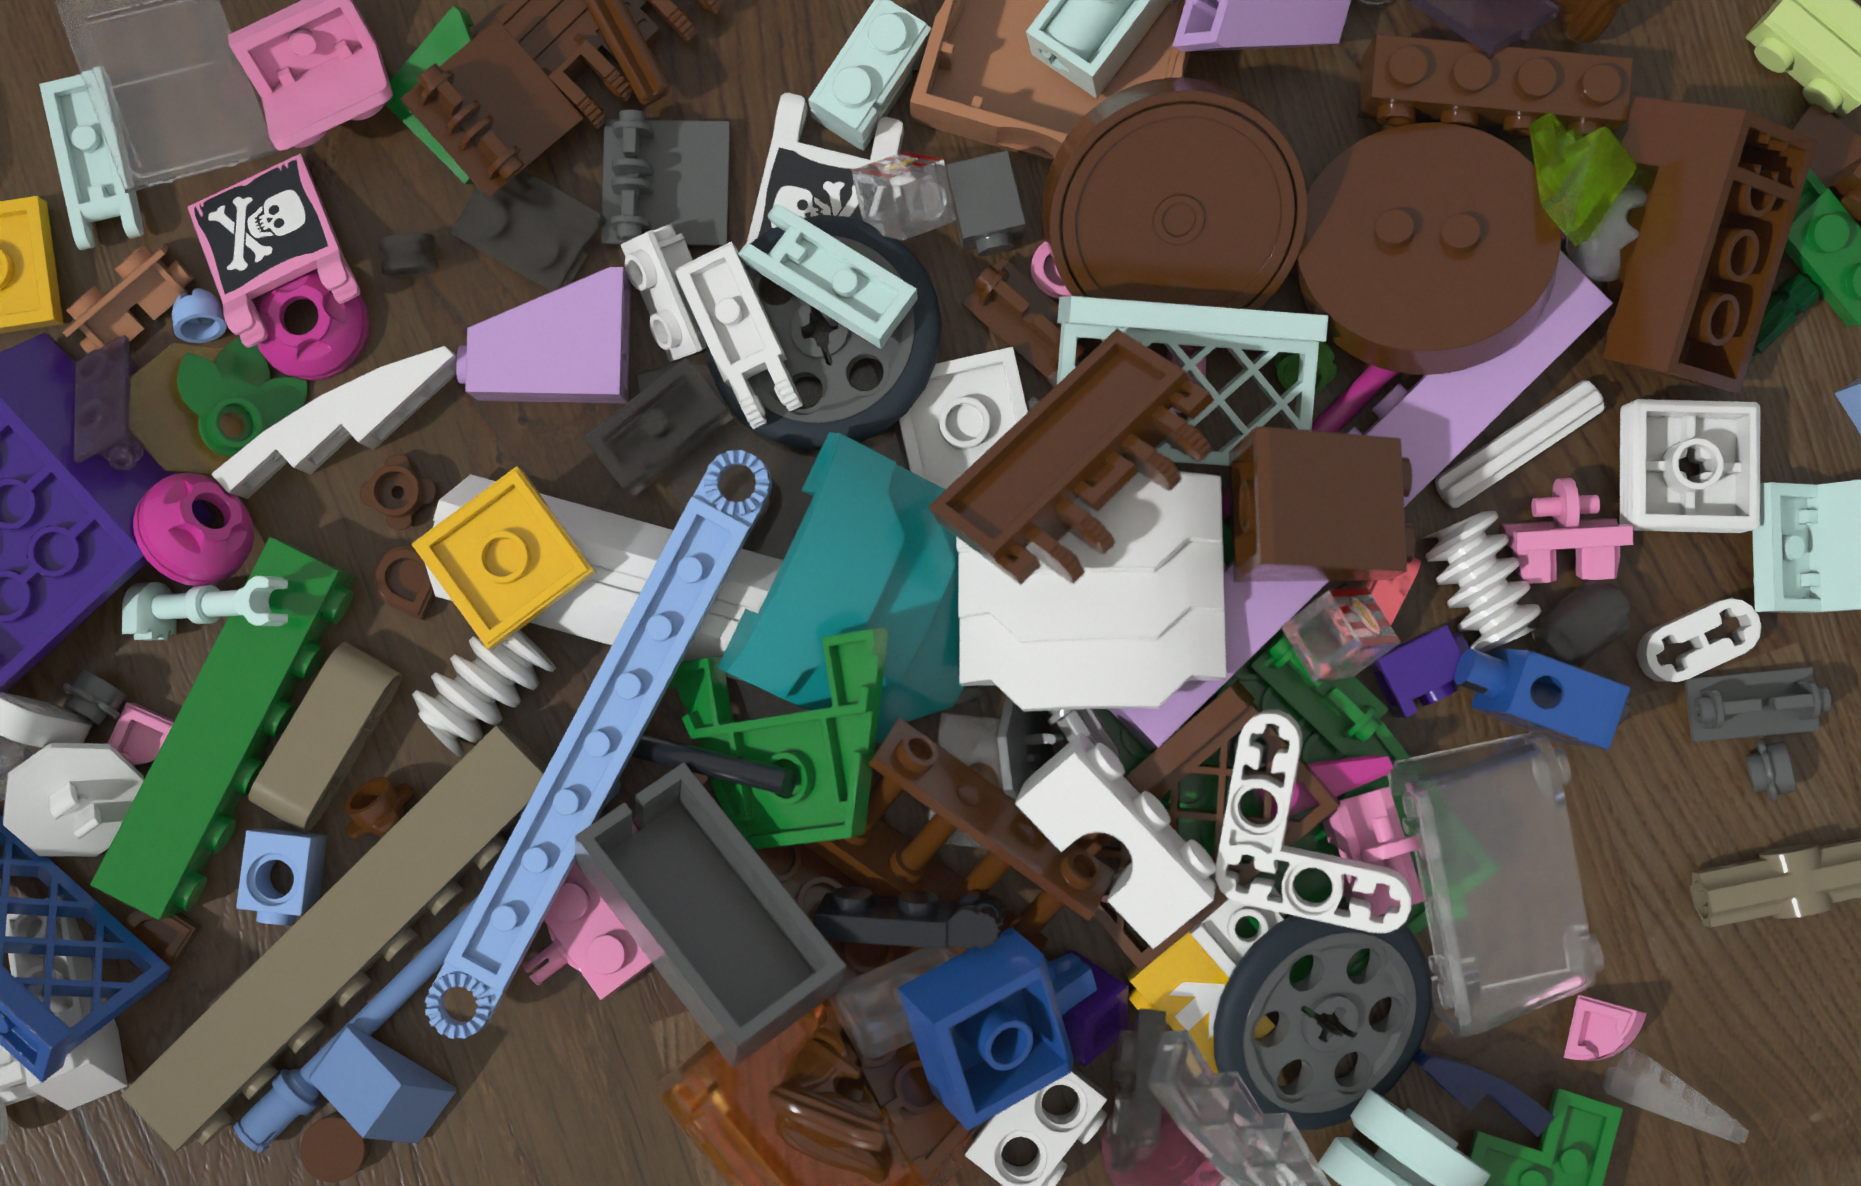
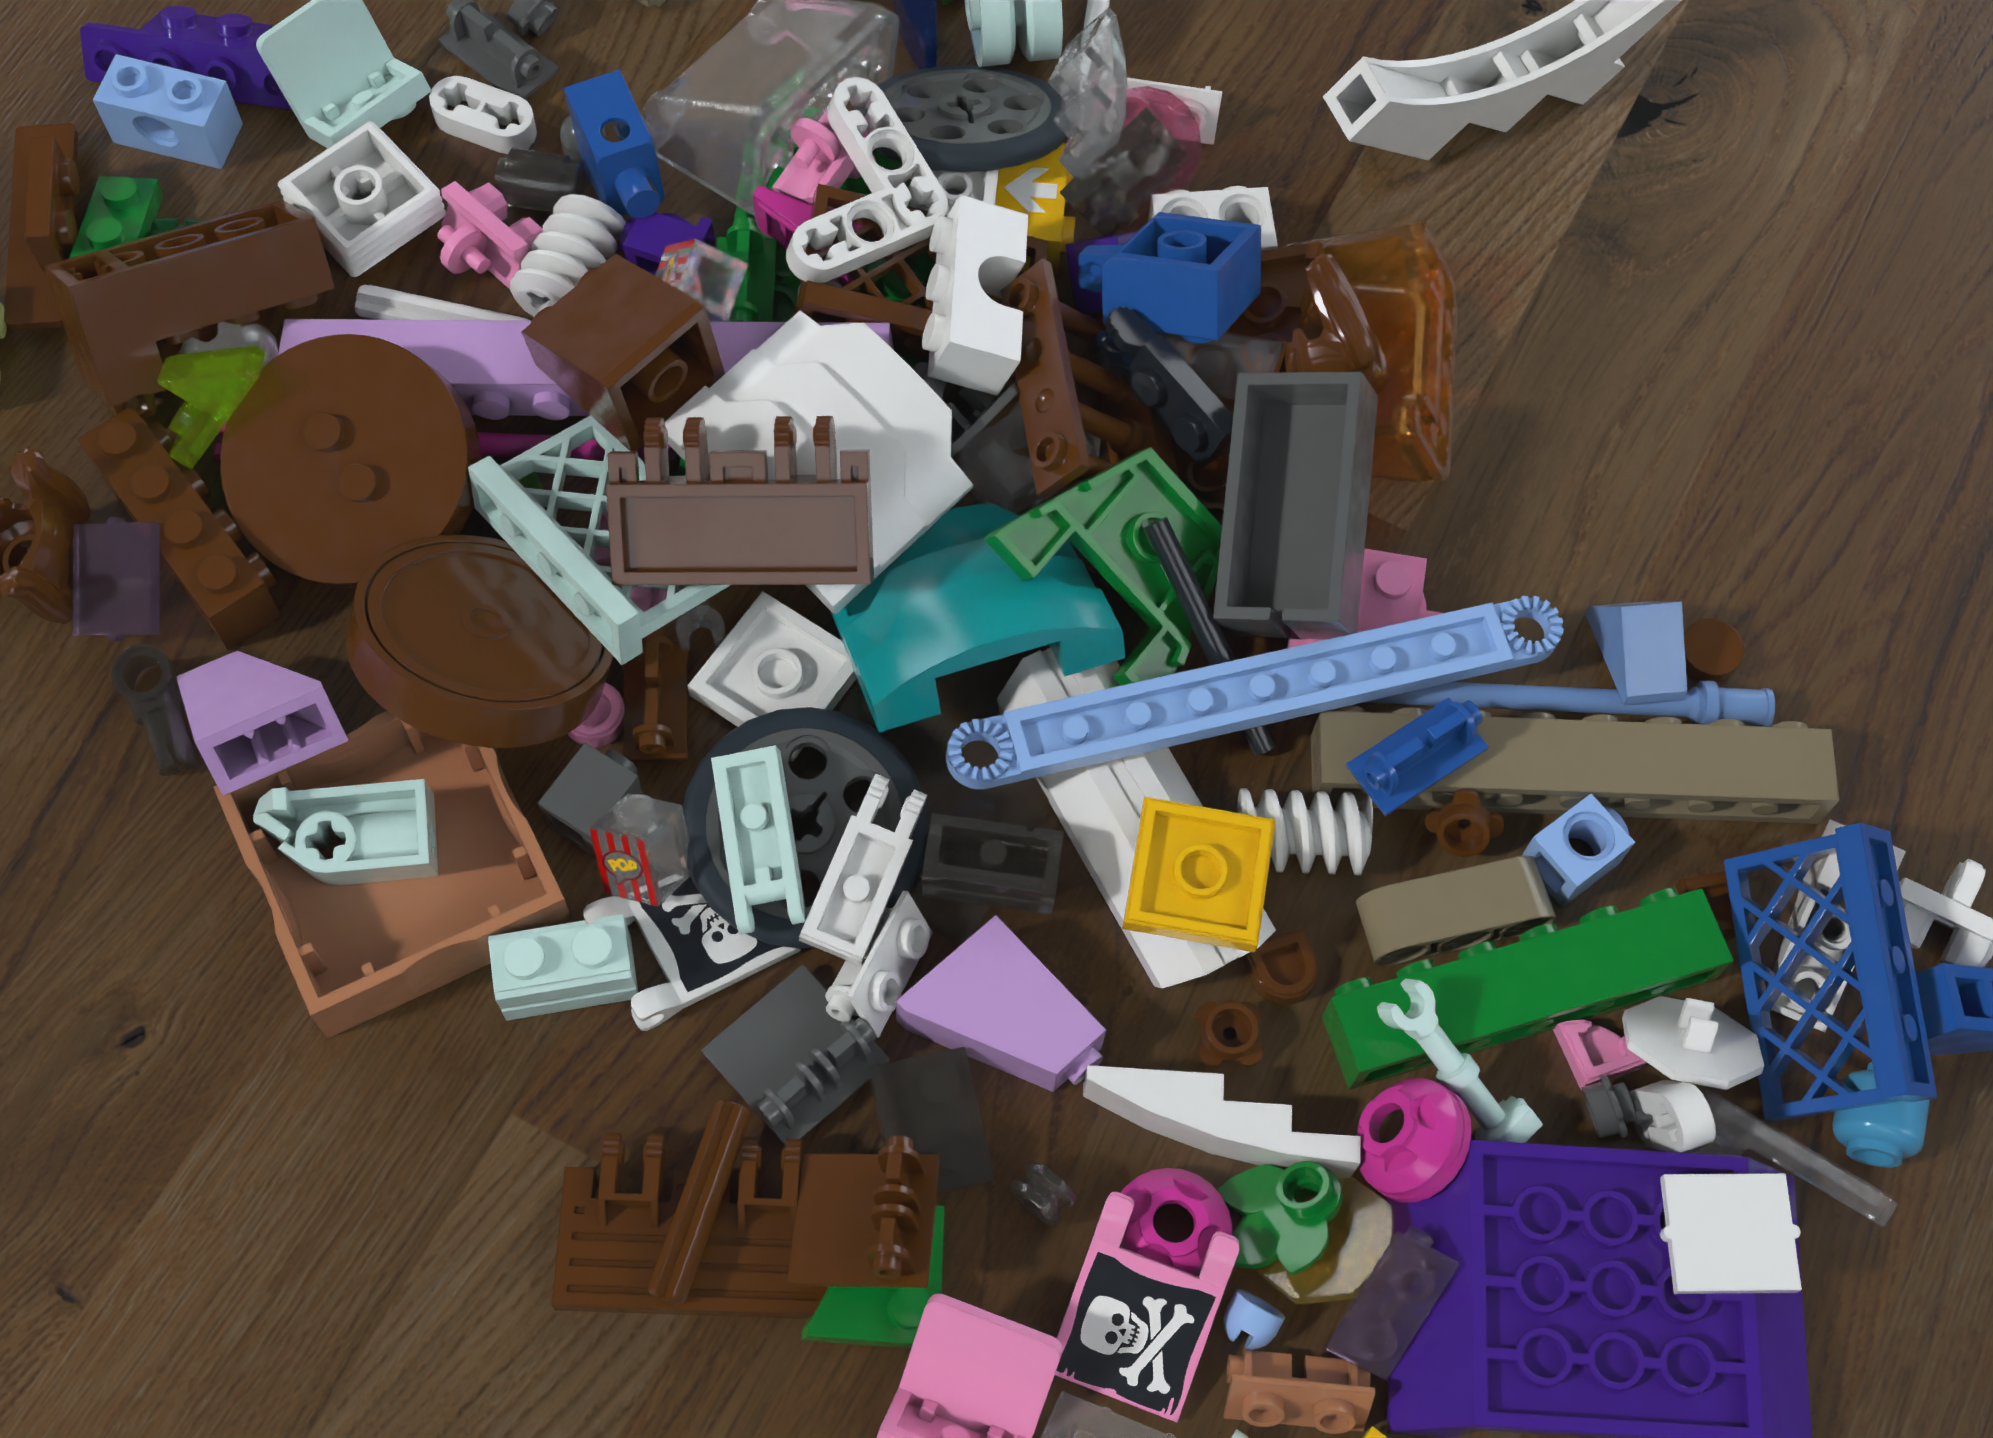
camera: 140 degrees left, 20 degrees down
(442, 811) = (1419, 754): none -> blue hinge

